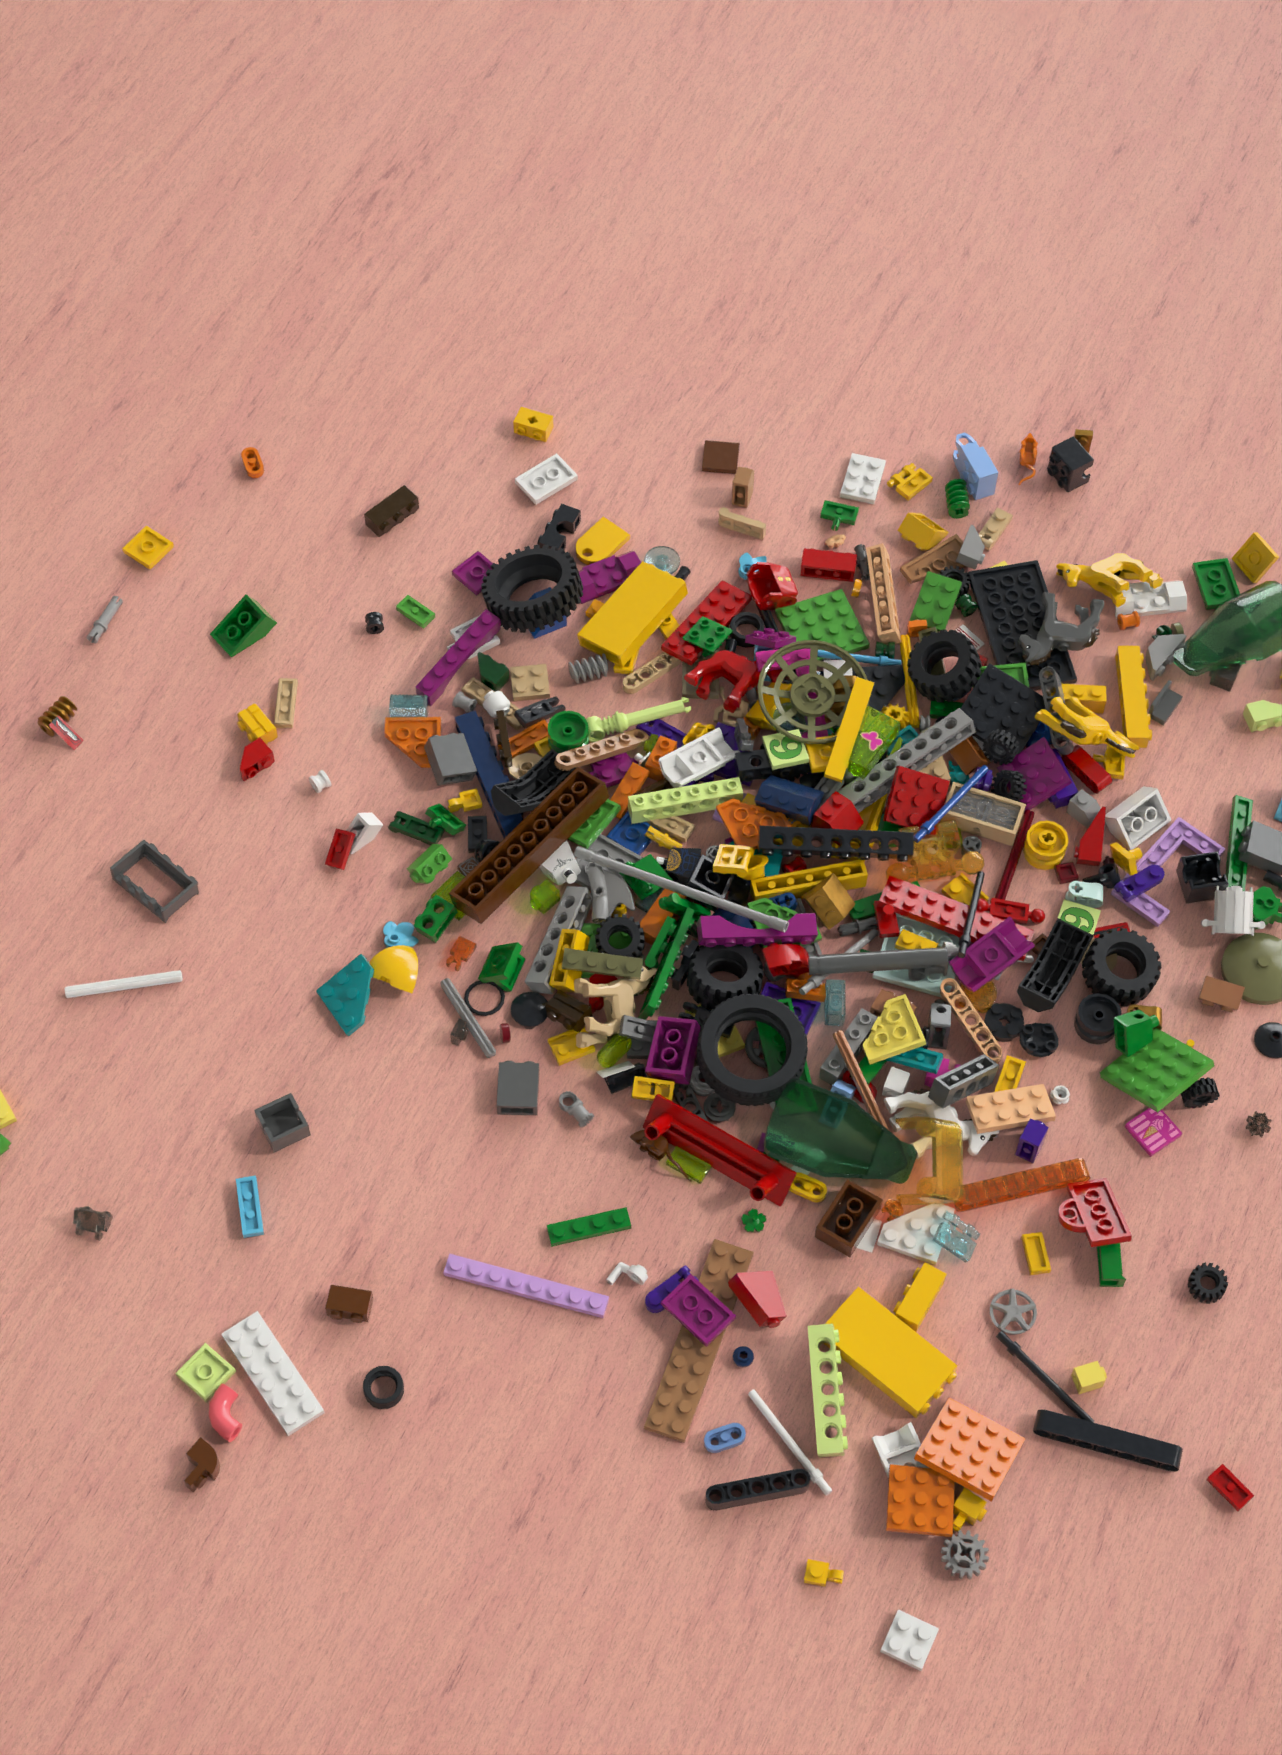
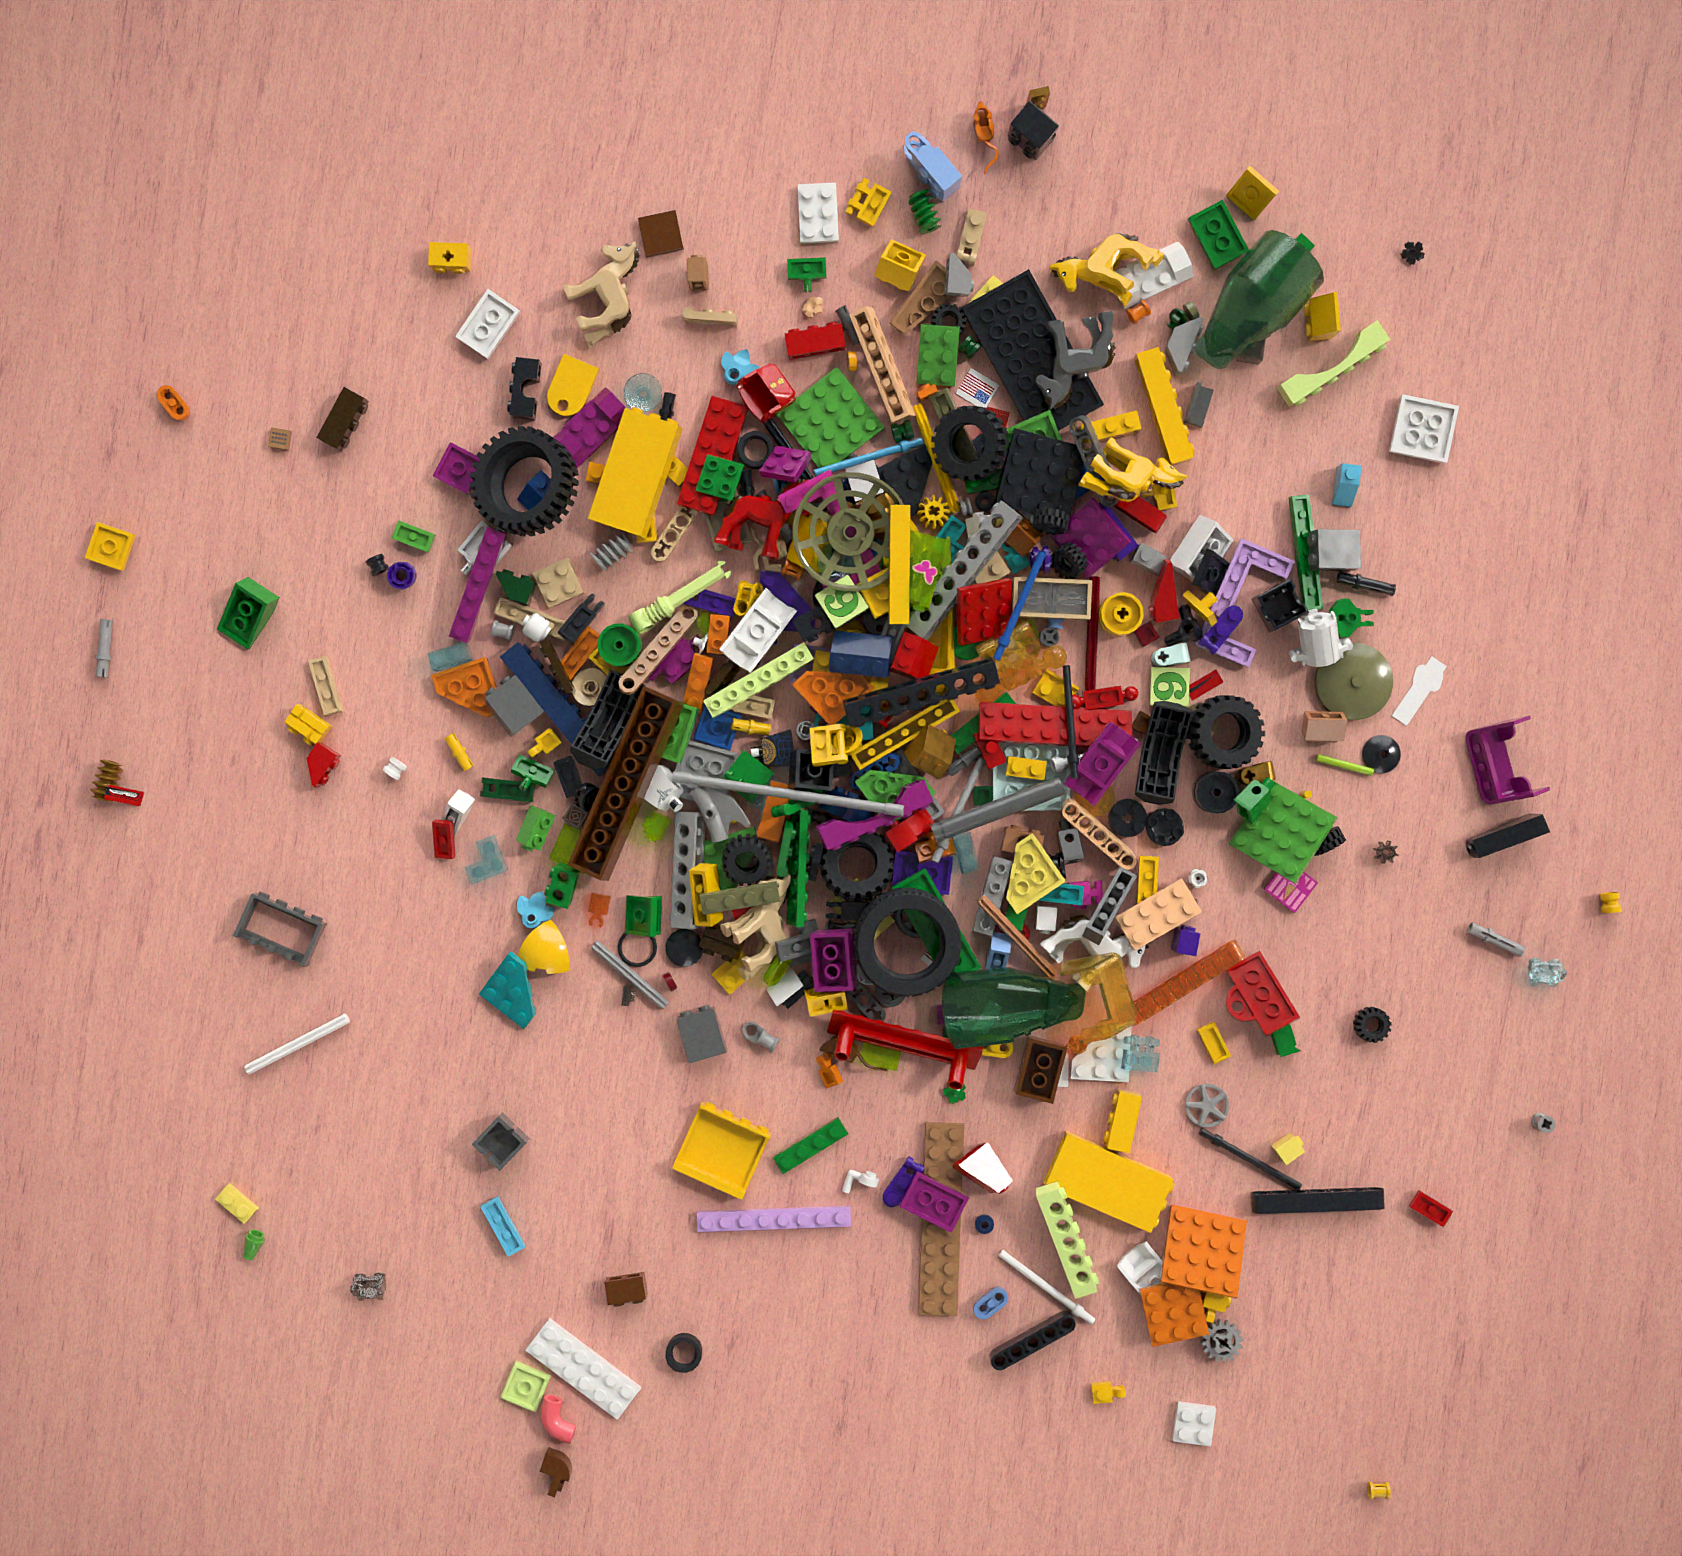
camera: 20 degrees left, 30 degrees up
(330, 512) = (279, 438): none -> medium nougat tile
(373, 886) = (491, 863): none -> clear light blue plate
(384, 786) = (458, 752): none -> yellow pin
(389, 629) = (410, 572): none -> dark purple wheel
(499, 1201) = (722, 1150): none -> yellow panel
(633, 1161) = (828, 1072): none -> orange plate
(662, 483) = (611, 292): none -> tan animal
(742, 736) = (793, 593): dark grey hinge -> none
(982, 835) = (1054, 623): none -> medium blue bush
(1141, 831) = (1210, 572): none -> black plate
(1234, 1037) = (1345, 765): none -> lime bar

